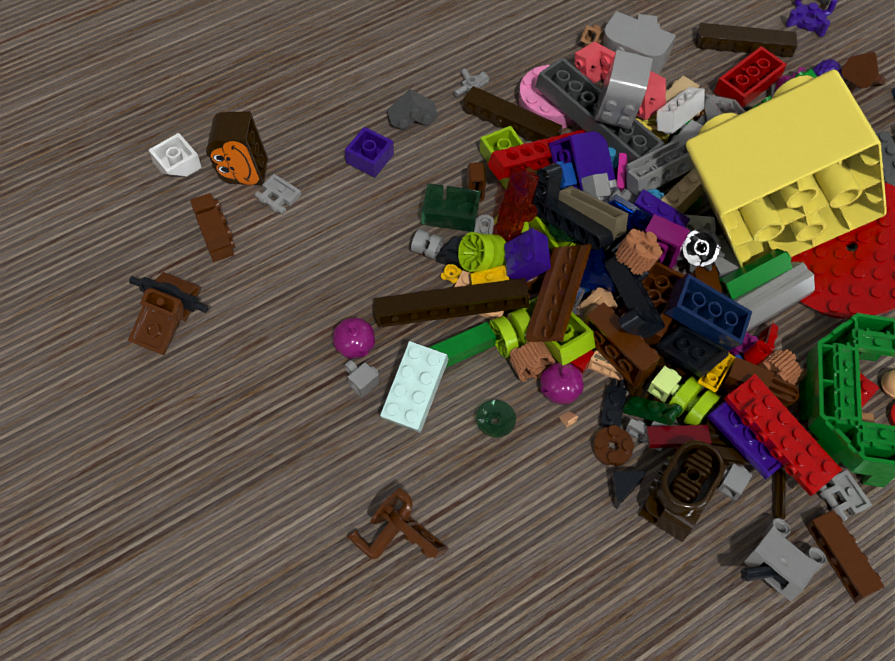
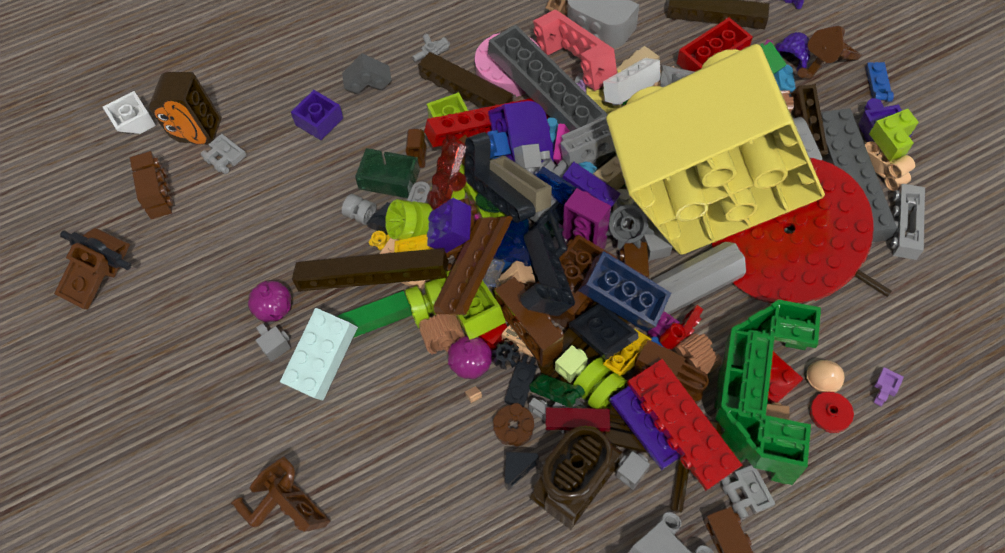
camera: 10 degrees right, 0 degrees up
(496, 410) = (396, 382): clear green dish -> none
(598, 373) = (499, 352): none -> black piece
(623, 89) = (562, 58): light grey brick -> none
(639, 251) = (555, 225): nougat brick -> none
(755, 273) = (686, 252): green brick -> none

